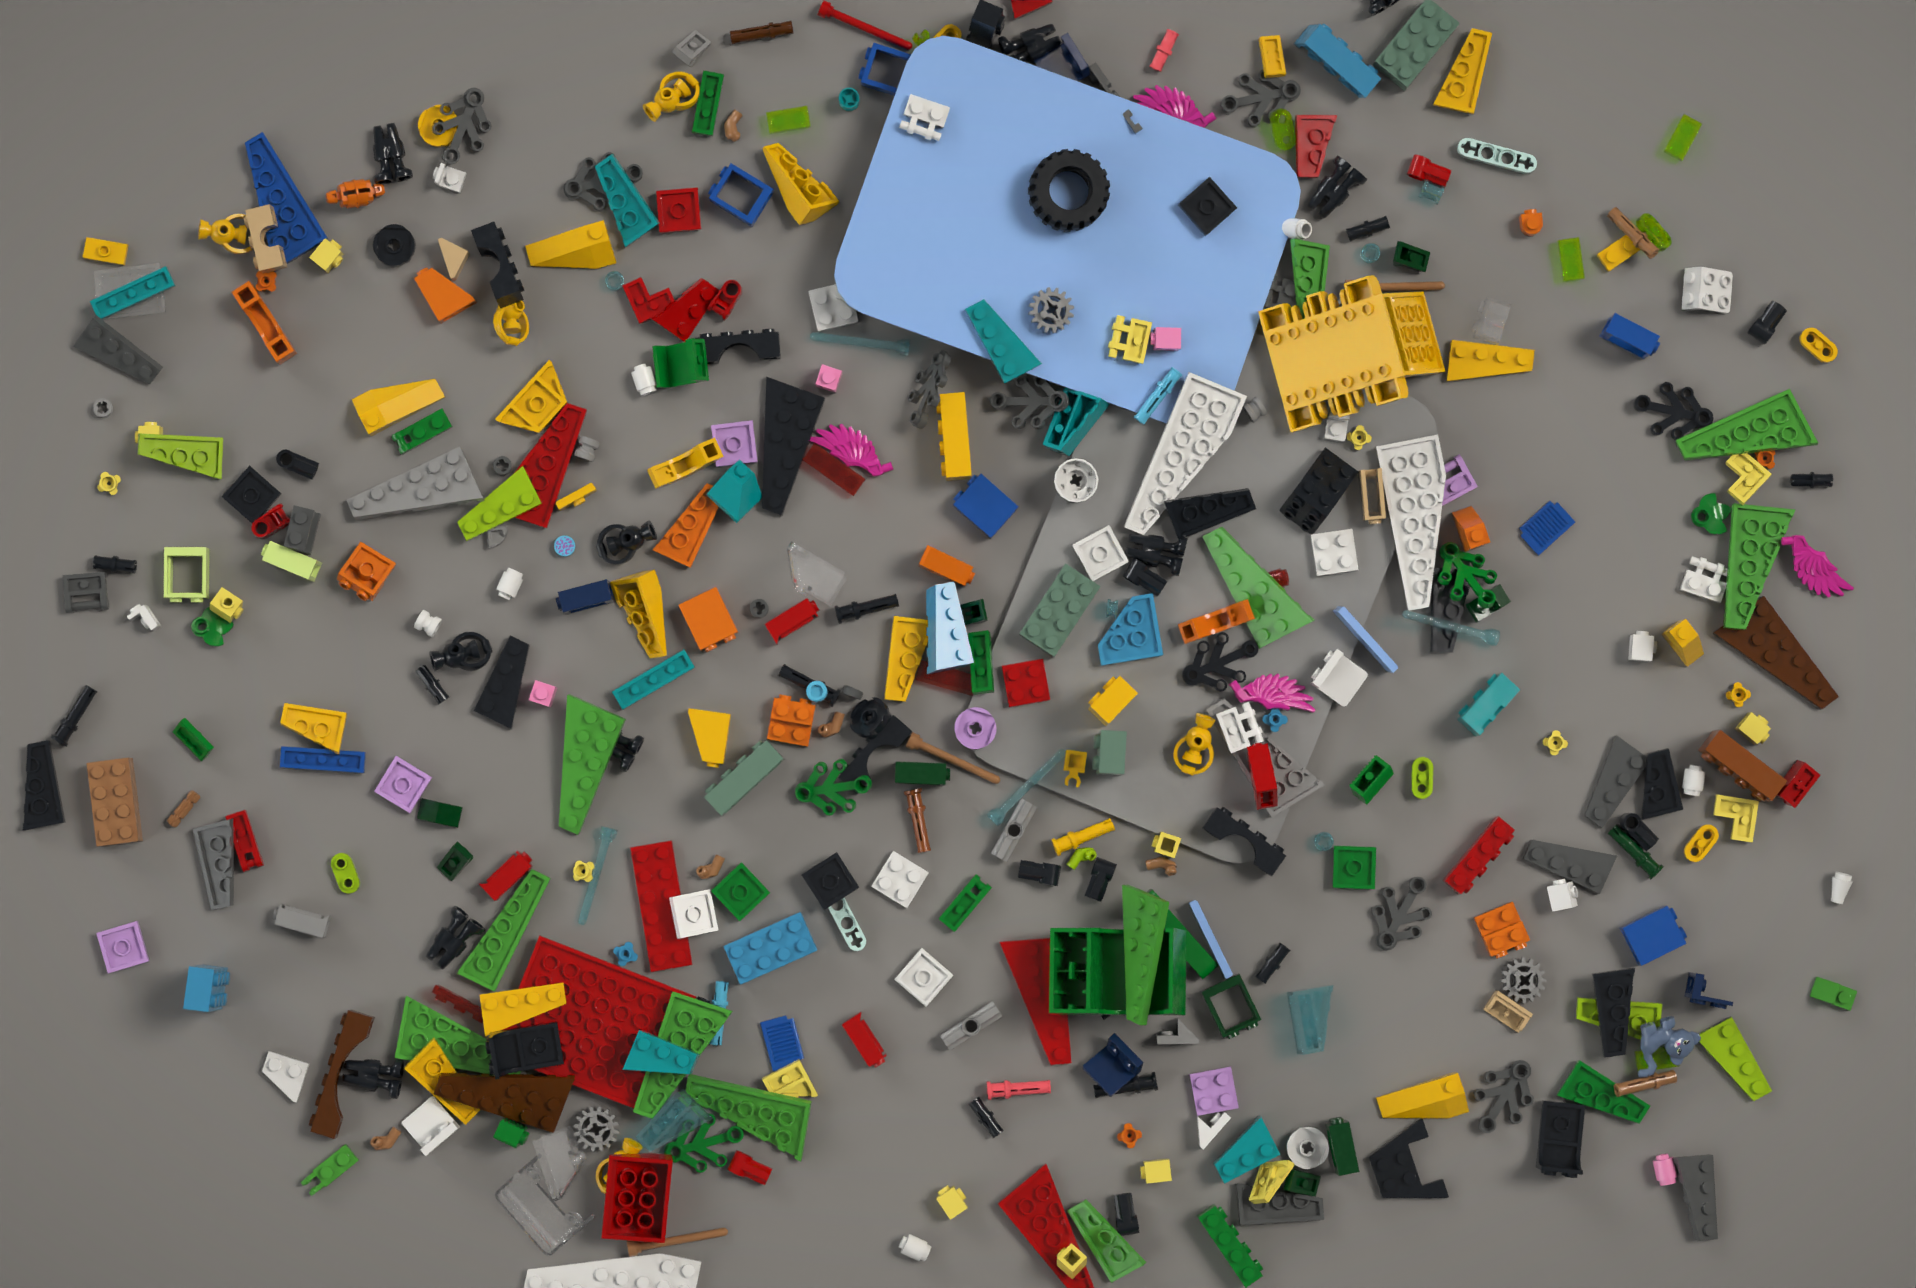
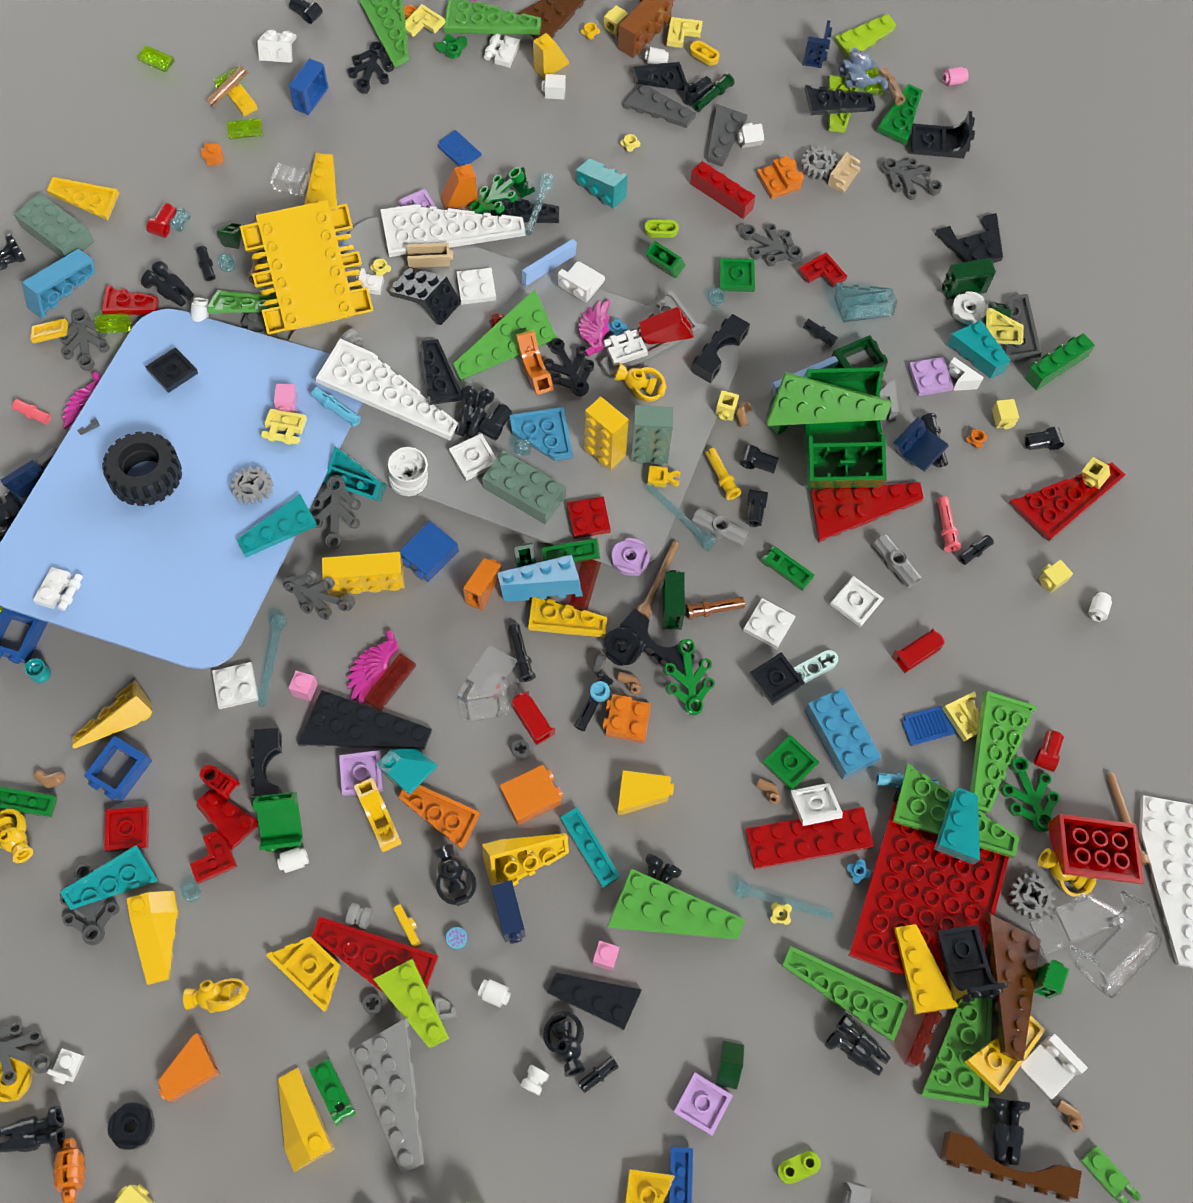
camera: 90 degrees left, 20 degrees down
(365, 572) = (480, 1150): orange plate -> none
(454, 257) = (148, 1059): tan slope -> none
(455, 861) = (779, 1045): dark green slope -> none
(490, 244) = (139, 1017): black arch -> none
(507, 875) = (790, 990): red window -> none
(673, 1120) = (1016, 814): clear light blue wedge -> none
(744, 777) = (683, 756): sand green brick -> none
(788, 119) = (50, 726): clear neon green plate -> none
(1081, 854) = (737, 473): lime arm -> none
(1107, 1245) = (1072, 453): bright green wing -> none
(1366, 975) = (825, 267): none -> red plate
(1430, 1099) = (919, 226): yellow wedge -> none
(1497, 151) = (155, 177): light aqua beam -> none
(1653, 935) = (777, 81): blue brick -> none
(1698, 1182) = (973, 55): dark grey wing -> none

